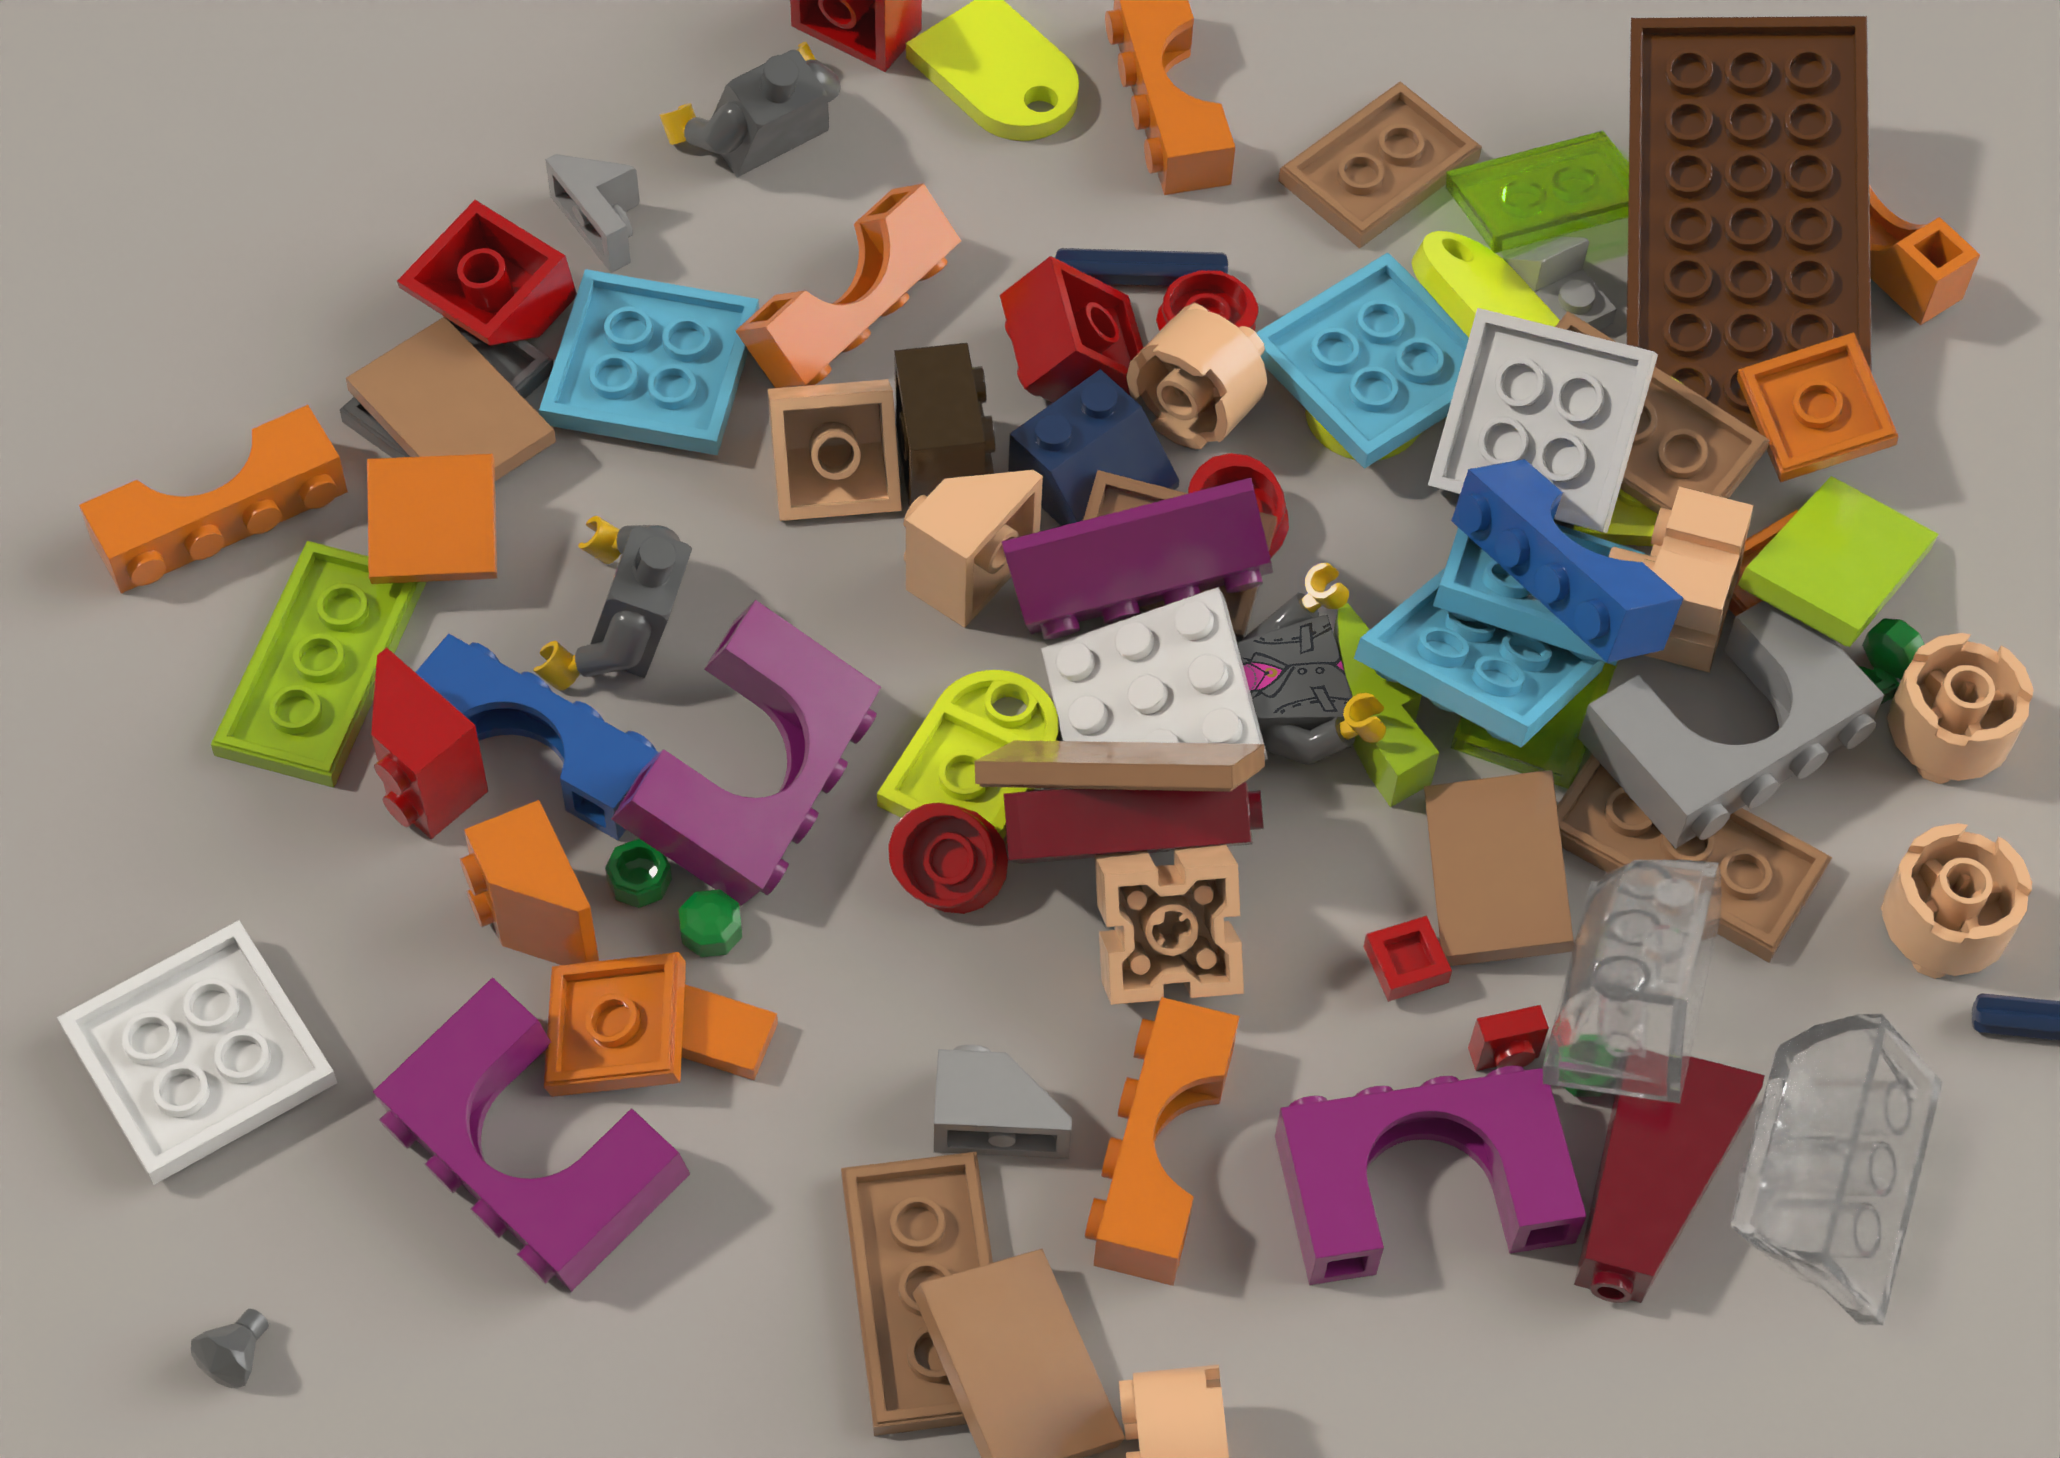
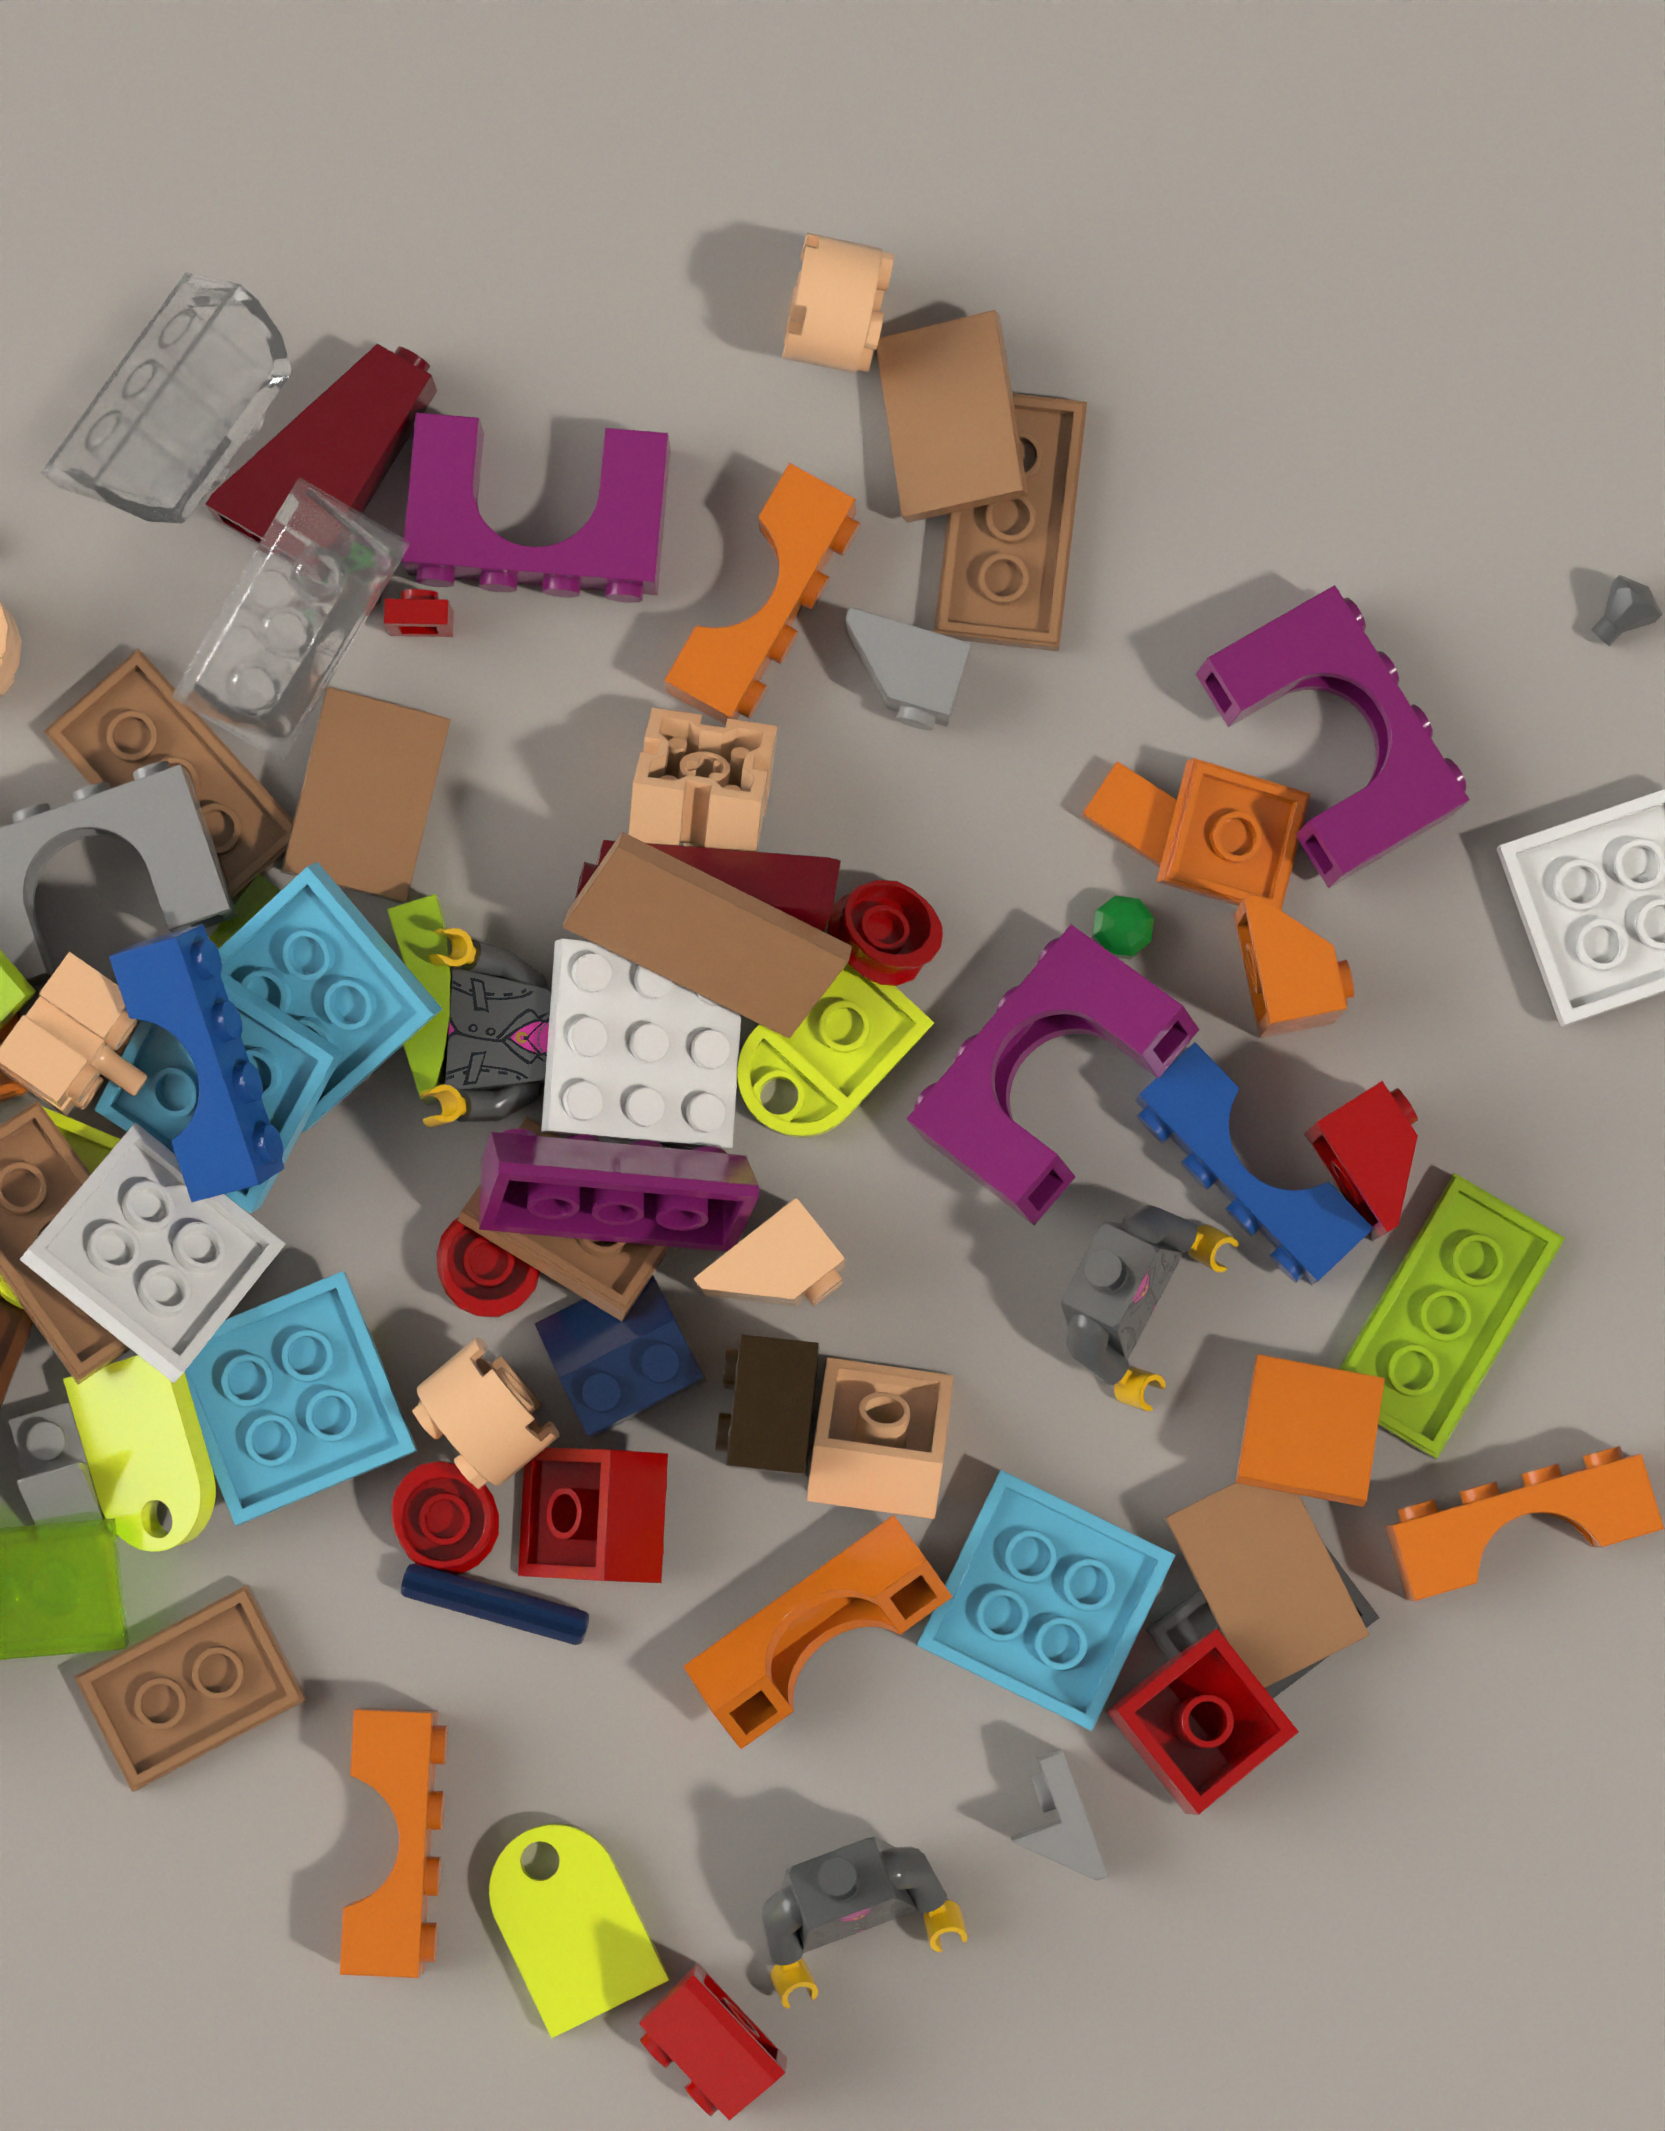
camera: 160 degrees left, 25 degrees up
(638, 873) = (1186, 985): green tile -> none
(1407, 958) = (483, 724): red plate -> none

